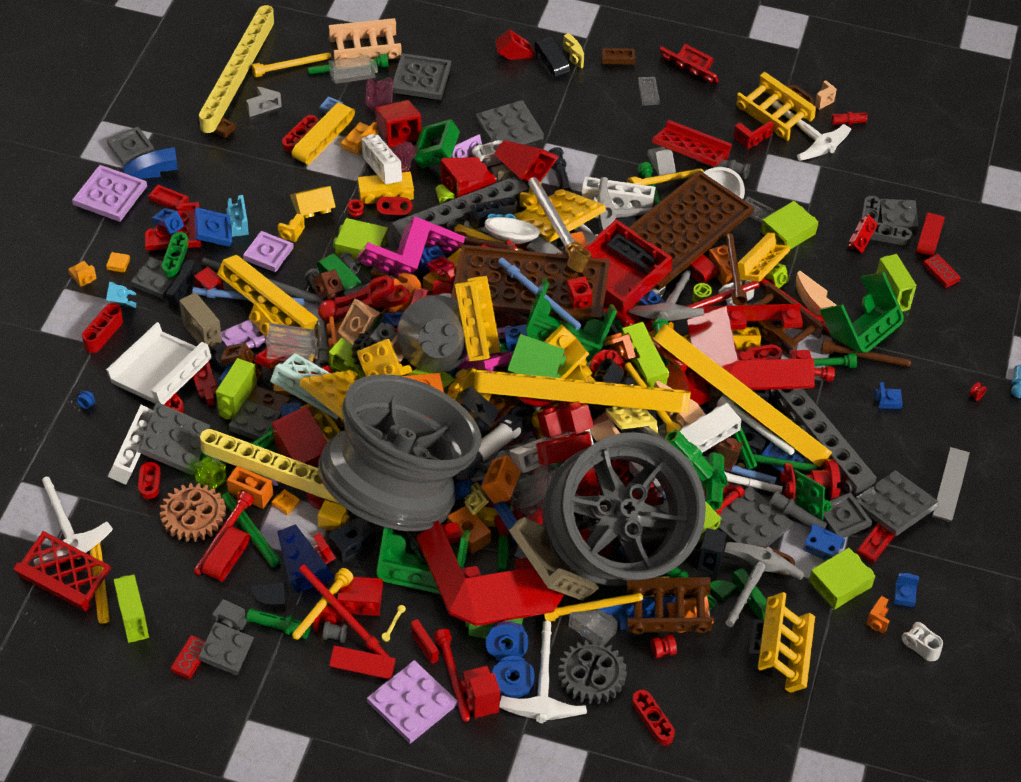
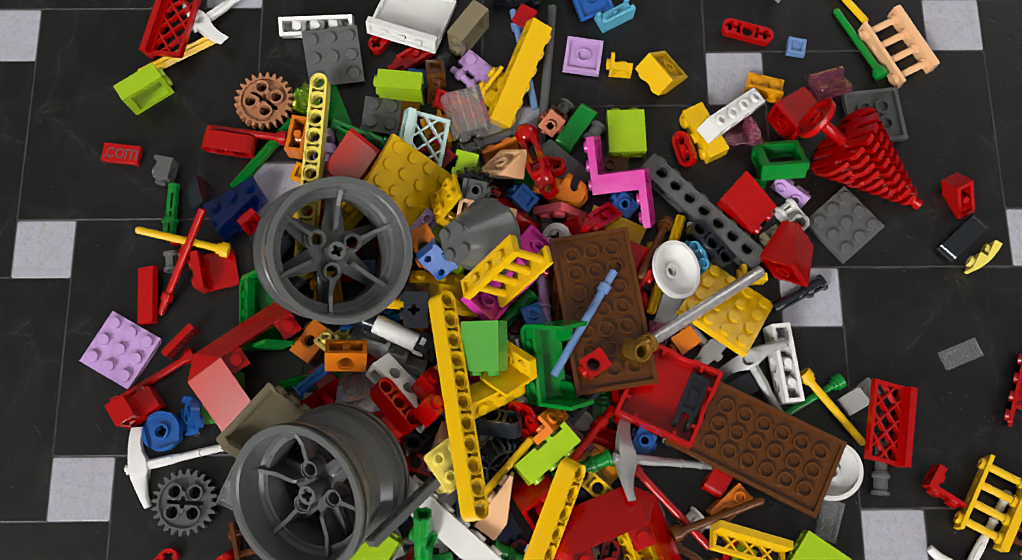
camera: 75 degrees right, 25 degrees up
(149, 482) = (289, 53): red plate -> none
(226, 648) = (133, 179): dark grey plate -> none
(323, 133) = (754, 51): yellow beam -> none
(352, 69) = (847, 47): clear brick -> none
(355, 203) = (675, 111): red bush -> none
(386, 636) = (184, 306): light yellow hinge -> none
(441, 373) = (434, 261): none -> piece
(444, 194) = (717, 191): lime cone -> none
(452, 86) = (858, 153): none -> red plant
(618, 56) = (997, 306): reddish brown plate -> none
(700, 292) = (676, 488): lime wheel -> none

